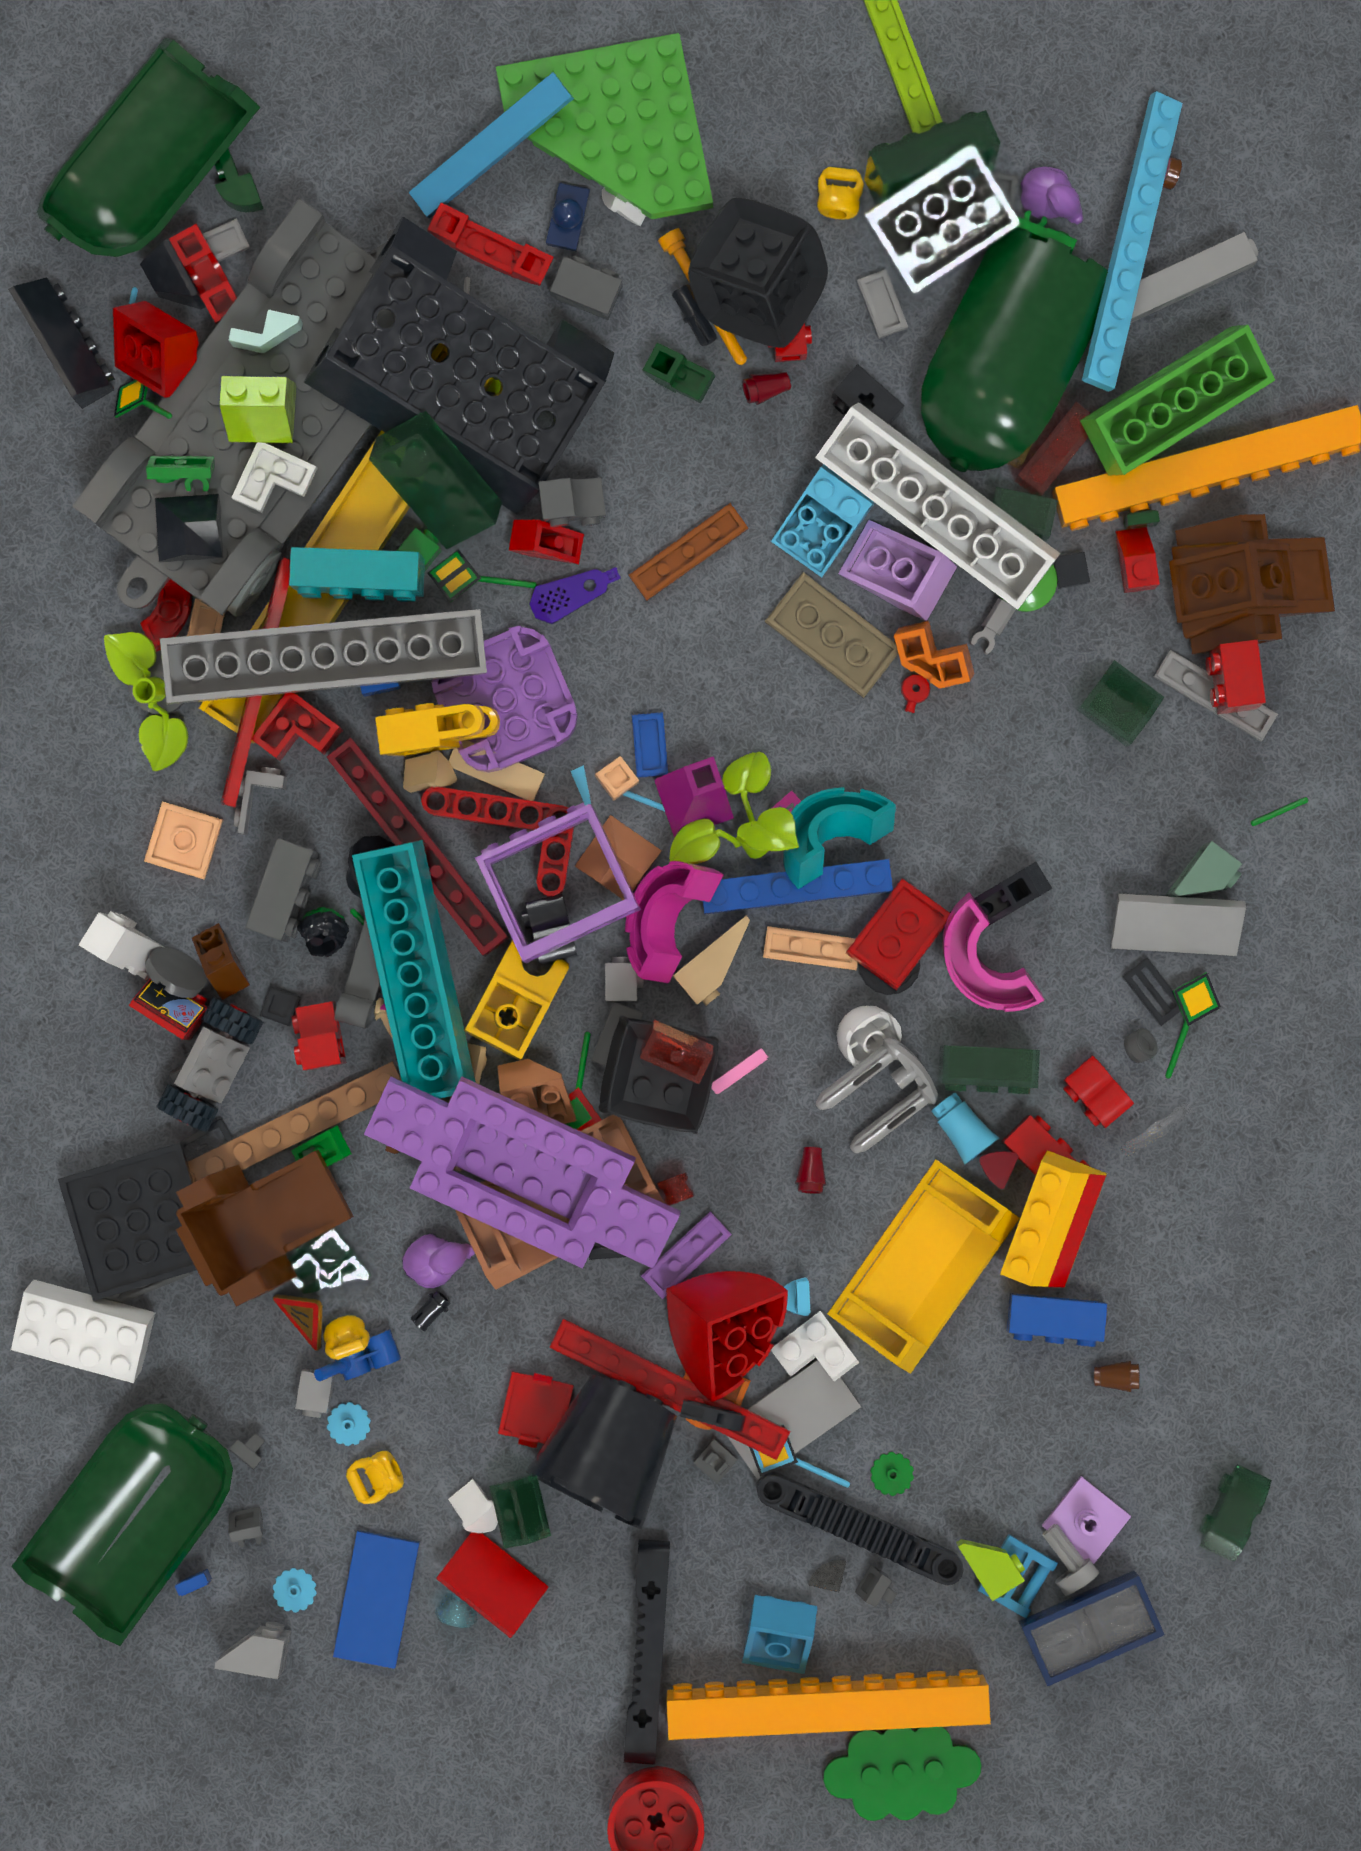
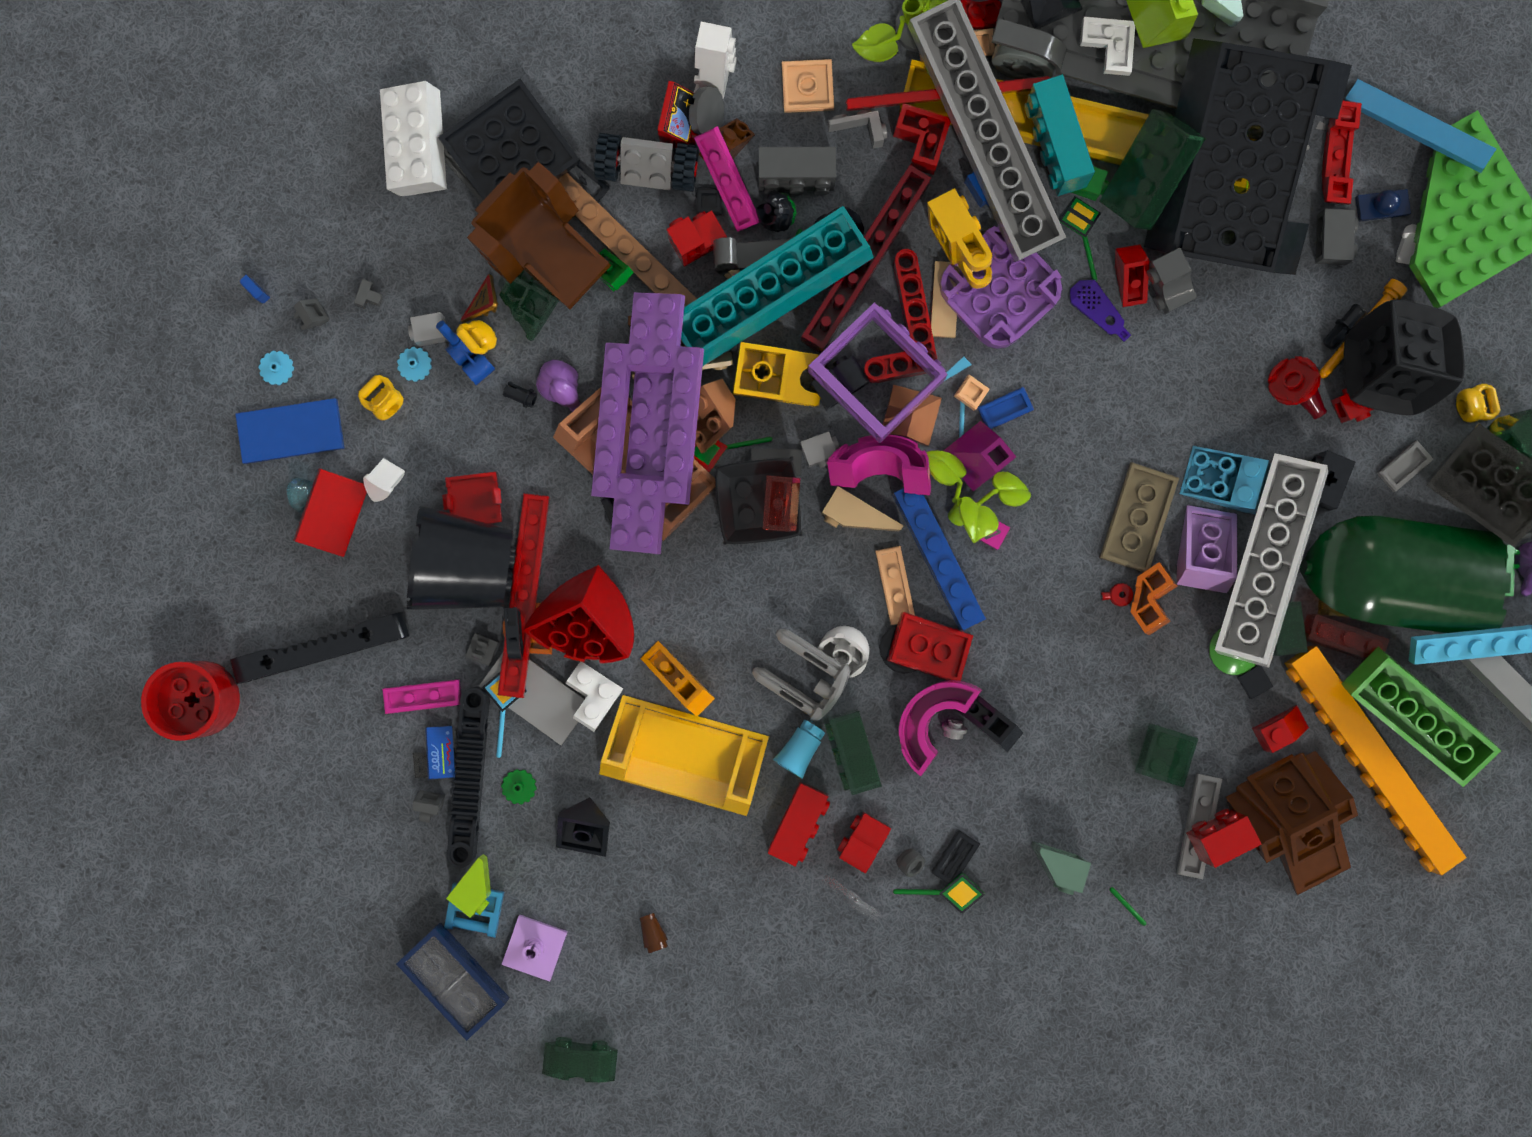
camera: 65 degrees right, 0 degrees up
(101, 1500) = (276, 194): dark green panel -> none
(258, 1653) = (215, 356): light grey slope -> none
(264, 976) = (727, 179): none -> dark pink tile
(428, 772) = (926, 248): tan tile -> none
(520, 1511) = (391, 514): clear green brick -> none
(676, 1189) = (676, 546): clear red wheel -> none
(678, 373) = (1295, 328): dark green brick -> none
(686, 1254) = (630, 572): medium lavender tile -> none
(688, 552) = (1162, 386): dark orange tile -> none
(737, 399) = (1294, 380): none -> red tile
(739, 1071) = (782, 561): bright pink tile -> none
(746, 1551) = (422, 696): none -> dark pink tile
(779, 1634) = (368, 744): dark azure slope -> none
(798, 1297) = (627, 668): medium azure tile -> none
(811, 1171) = (724, 645): dark red cone -> none
(819, 1552) = (440, 752): none -> blue tile
(827, 1705) = (324, 799): light orange brick -> none
(831, 1242) = (677, 679): none -> light orange slope
(833, 815) = (1003, 564): teal brick -> none
(902, 1772) = (296, 873): green plate -> none
(968, 1414) = (583, 828): none -> black slope
(994, 623) = (1192, 637): light grey bar -> none
(998, 1166) = (780, 786): dark red tile -> none
(1003, 940) = (954, 729): none -> light grey plate
(1053, 1222) = (752, 843): yellow slope -> none
(1056, 1319) = (679, 871): blue brick -> none
(1079, 1571) = (493, 957): light grey piece -> none
(1141, 519) = (1314, 721): dark green tile -> none
(1178, 924) = (1014, 859): light grey tile -> none

